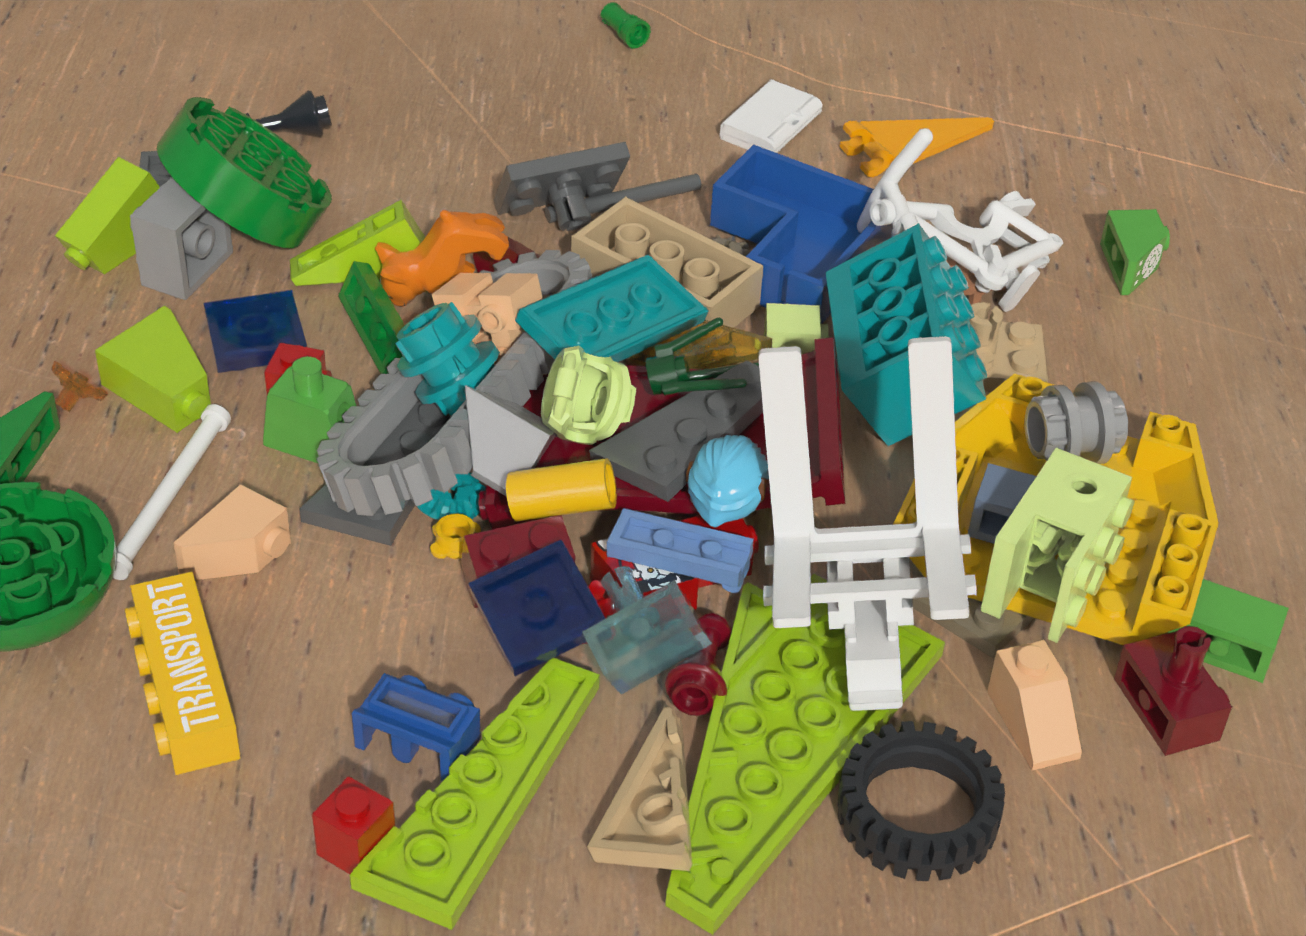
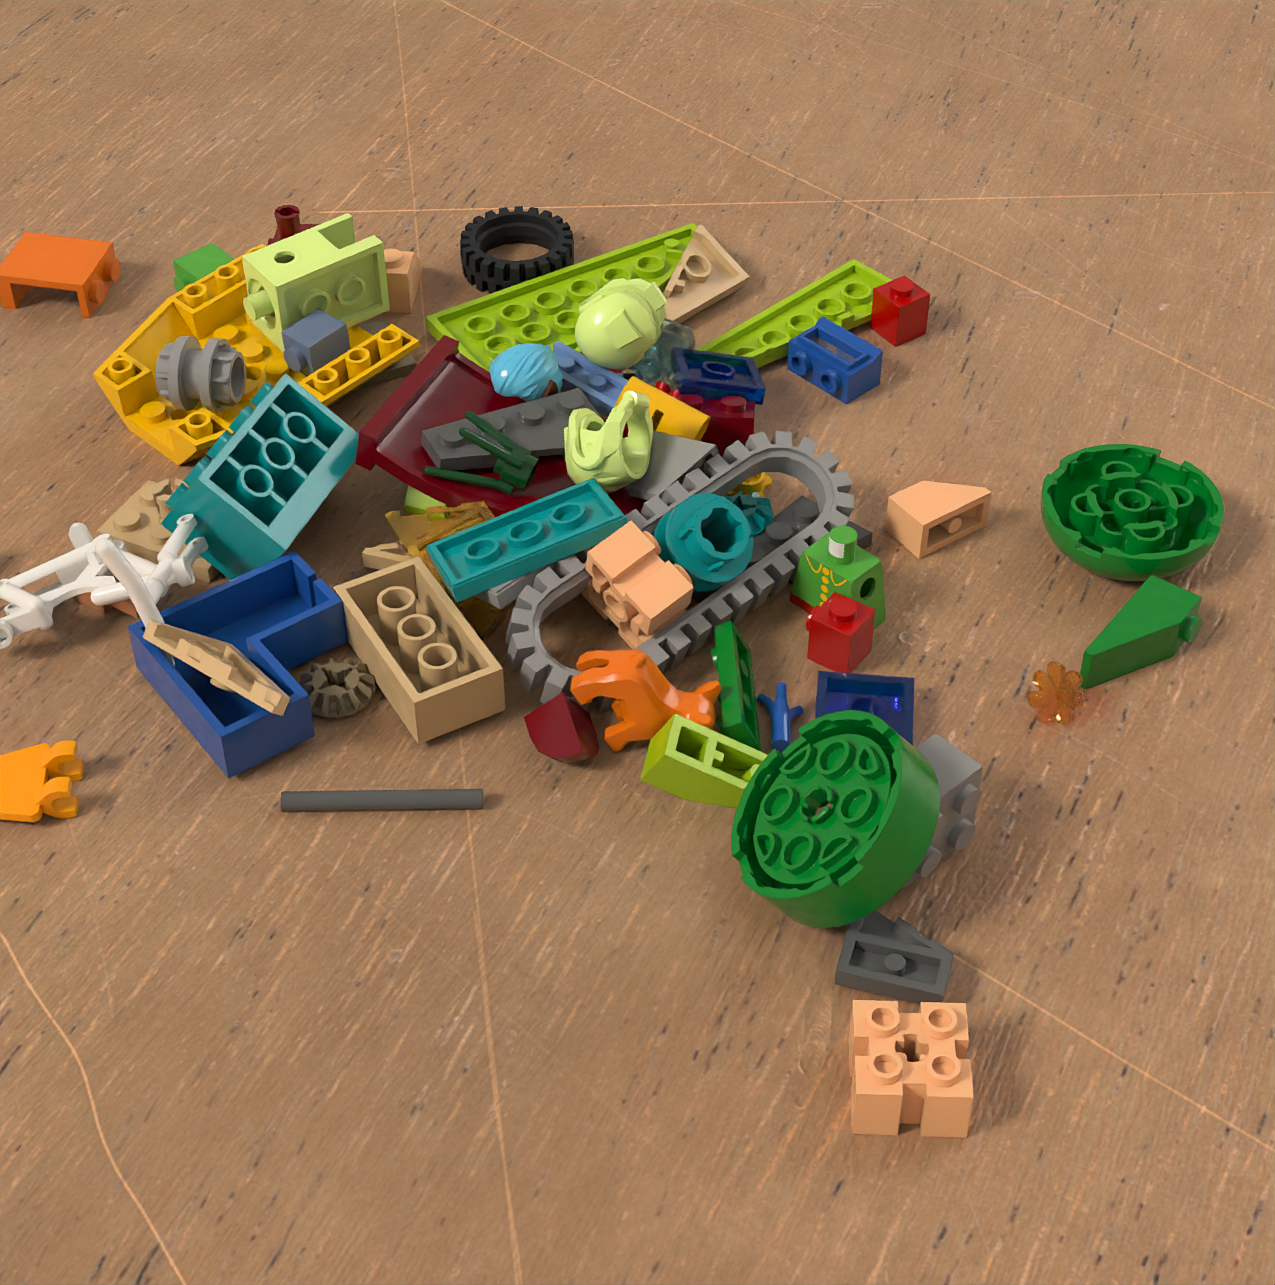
camera: 155 degrees left, 0 degrees up
(100, 227) = (983, 879): lime slope -> none
(148, 104) = (910, 1069): none -> light nougat brick
(156, 370) = (976, 687): lime slope -> none
(184, 674) = (999, 431): yellow brick -> none
(214, 420) = (927, 636): white bar -> none
(304, 116) = (714, 1008): black piece -> none
(331, 322) = (780, 717): none -> blue bar
(562, 183) = (456, 781): dark grey plate -> none
(628, 26) = (182, 1078): green pin -> none
(661, 545) = (620, 322): none -> yellowish green helmet
(770, 117) = (124, 868): white piece -> none
(794, 325) = (340, 560): yellowish green brick -> none
(819, 195) = (221, 662): none -> tan wing
(866, 608) = (479, 311): white piece -> none

